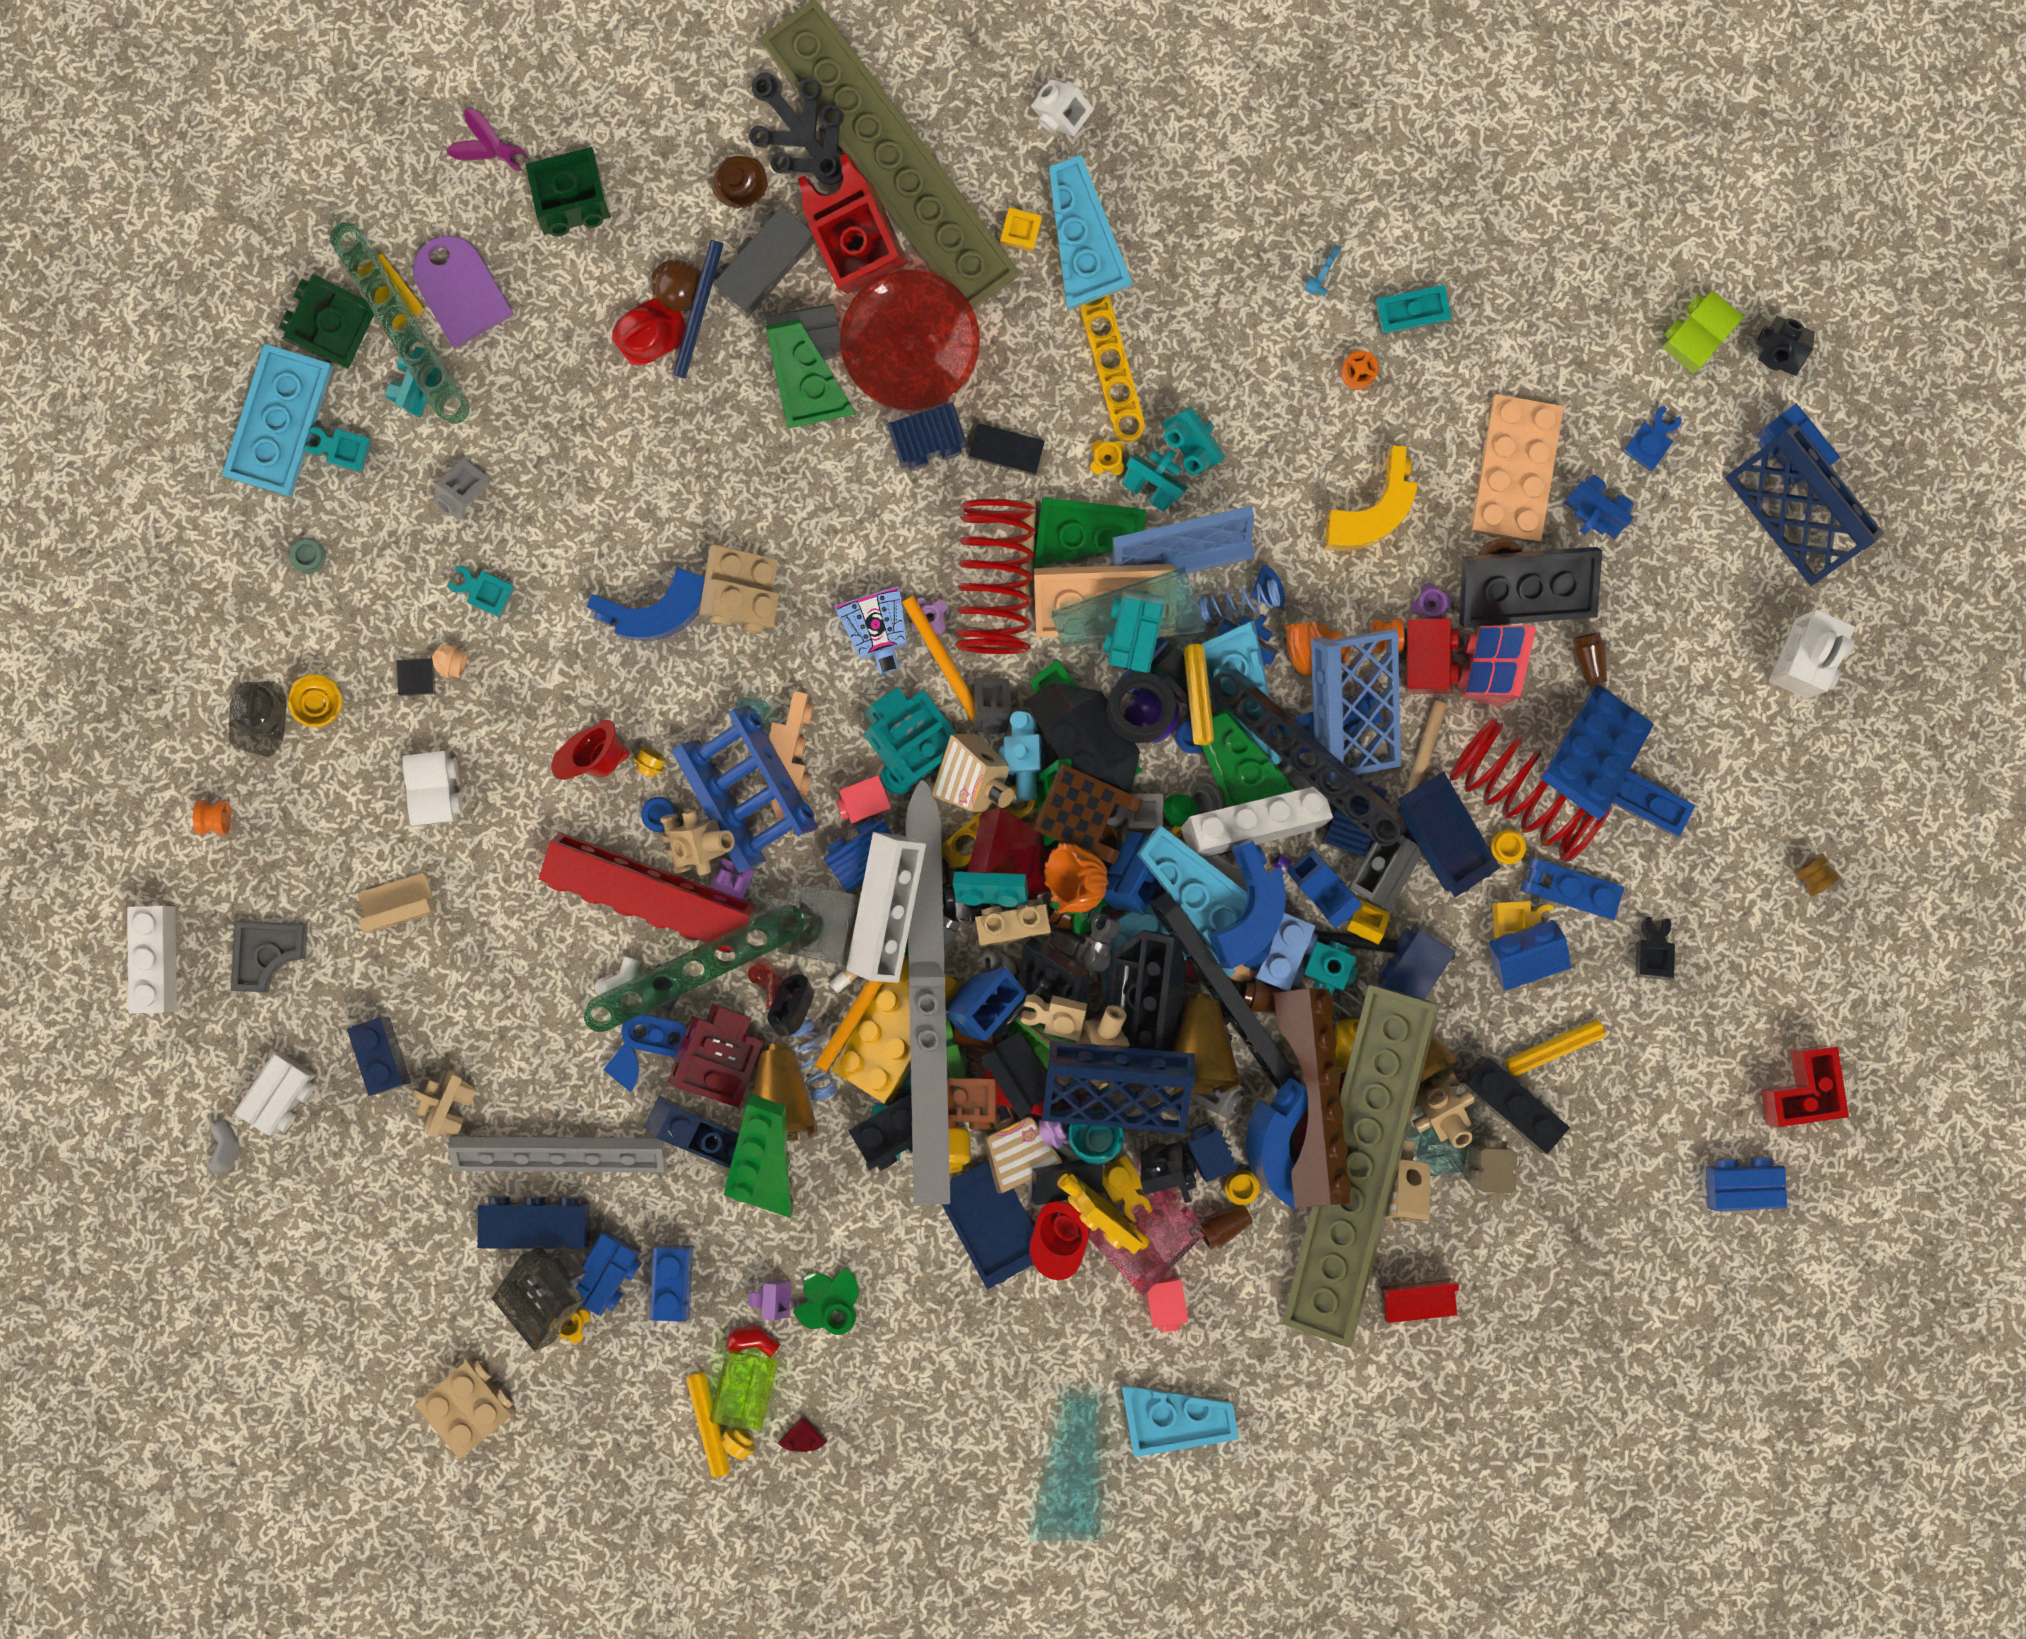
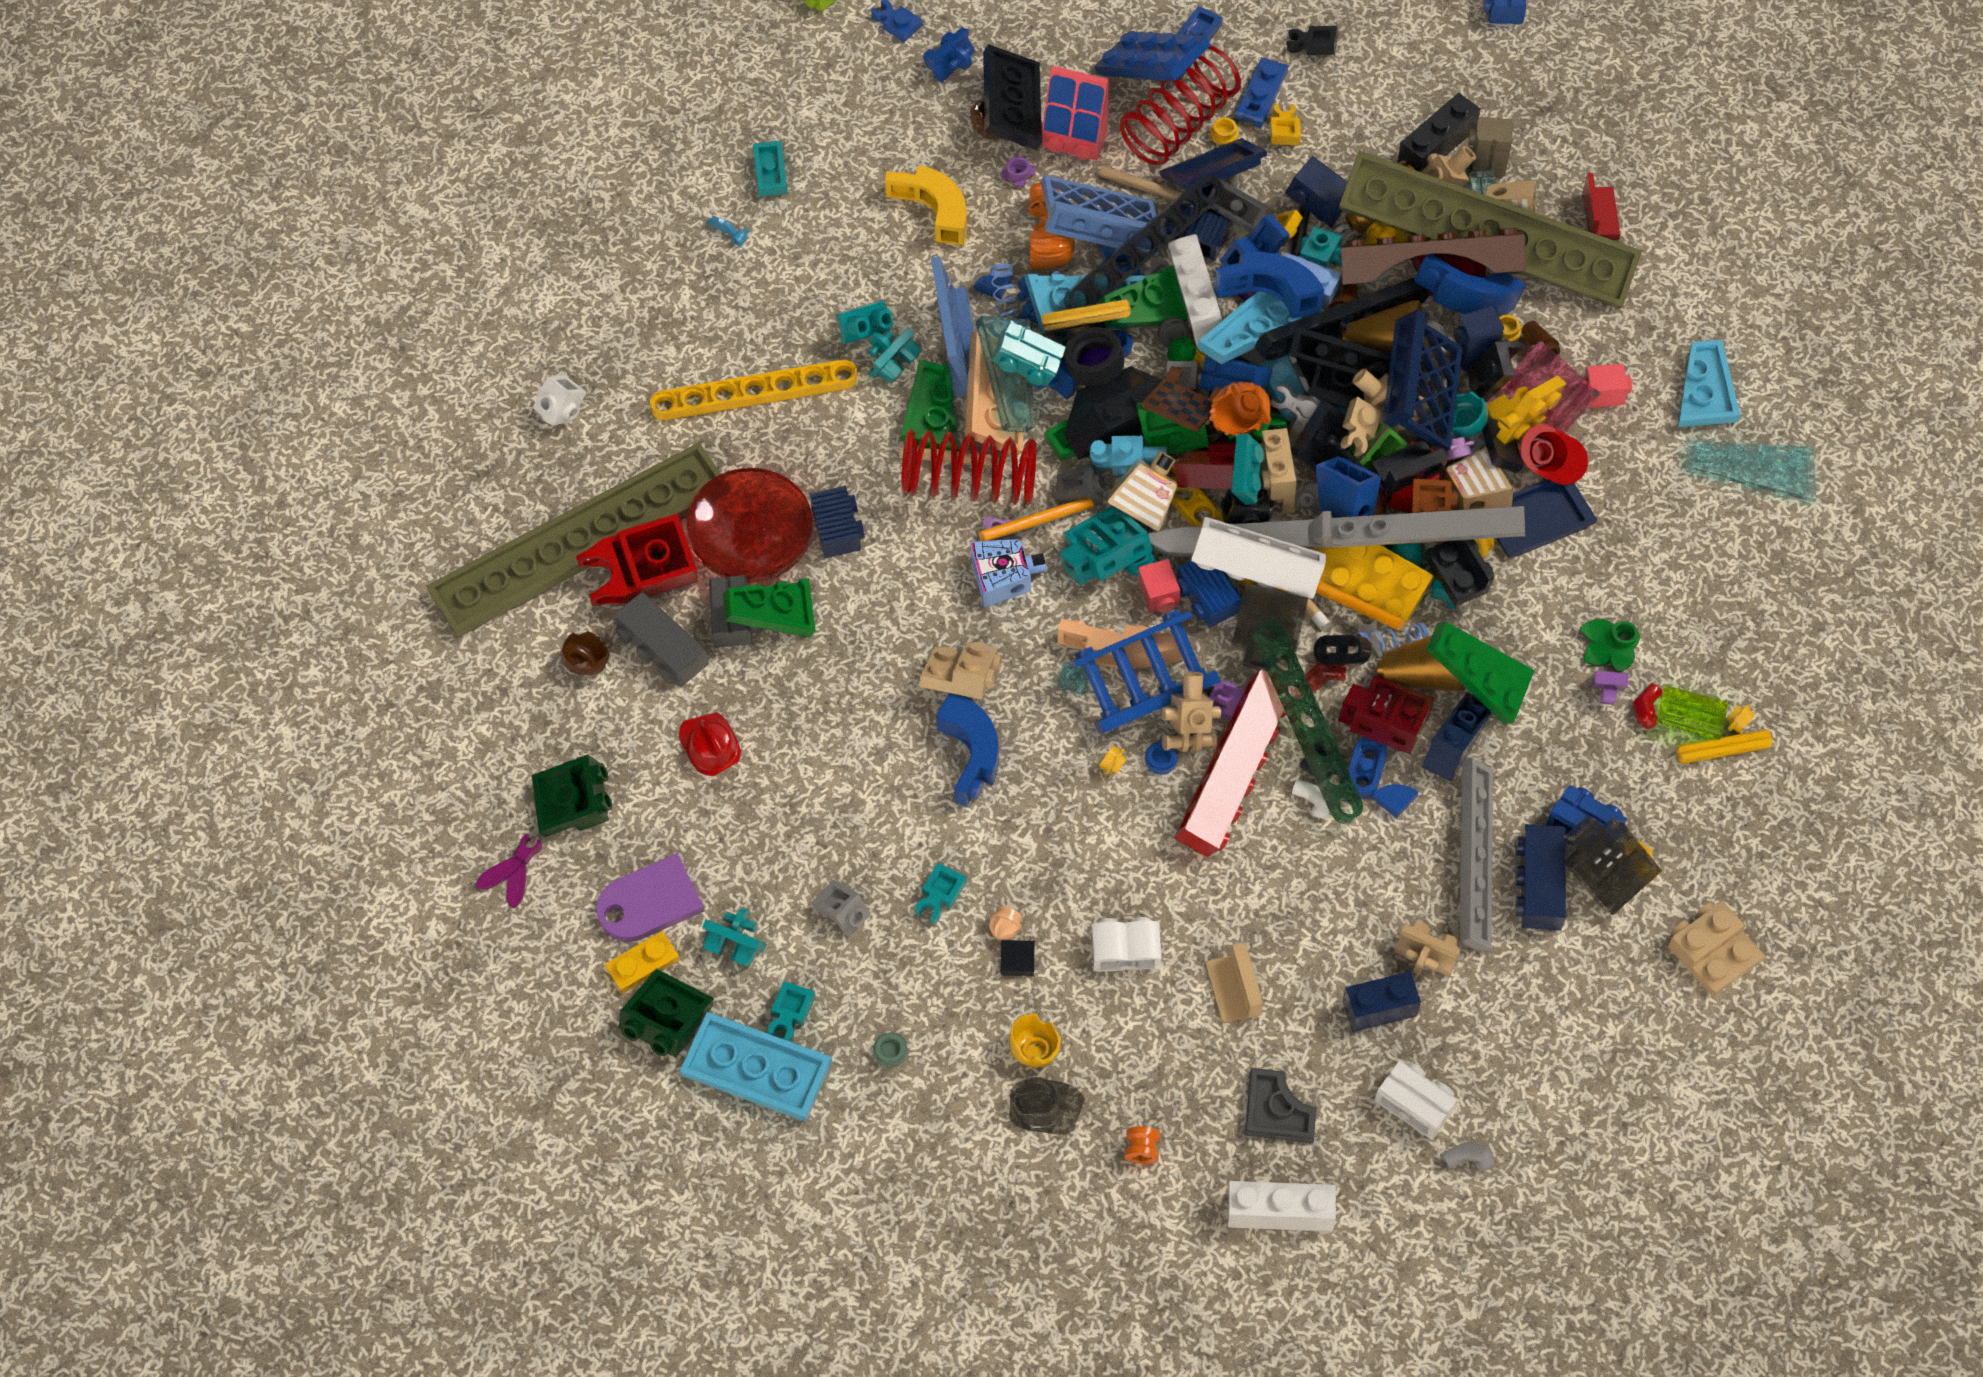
camera: 80 degrees left, 25 degrees down
(412, 333) = (668, 951): clear green beam -> none
(590, 752) = (1100, 805): red piece -> none
(671, 1282) = (1595, 763): blue brick -> none
(675, 284) = (671, 713): reddish brown hair -> none
(698, 309) = (697, 693): dark blue bar -> none
(802, 1437) = (1732, 672): dark red tile -> none
(803, 130) = (546, 603): black plant -> none
(1006, 449) = (854, 465): black tile -> none
(1021, 229) = (660, 441): yellow plate -> none
(1086, 243) = (679, 387): medium azure wing -> none
(1102, 449) = (869, 383): yellow plate -> none
(1363, 363) = (814, 200): orange wheel -> none
(1431, 656) = (1066, 163): red brick -> none
(1517, 468) = (911, 109): light nougat plate -> none
(1529, 955) = (1316, 116): blue brick -> none
(1555, 1048) = (1390, 108): yellow axle -> none
(1591, 657) = (1075, 63): reddish brown cone -> none

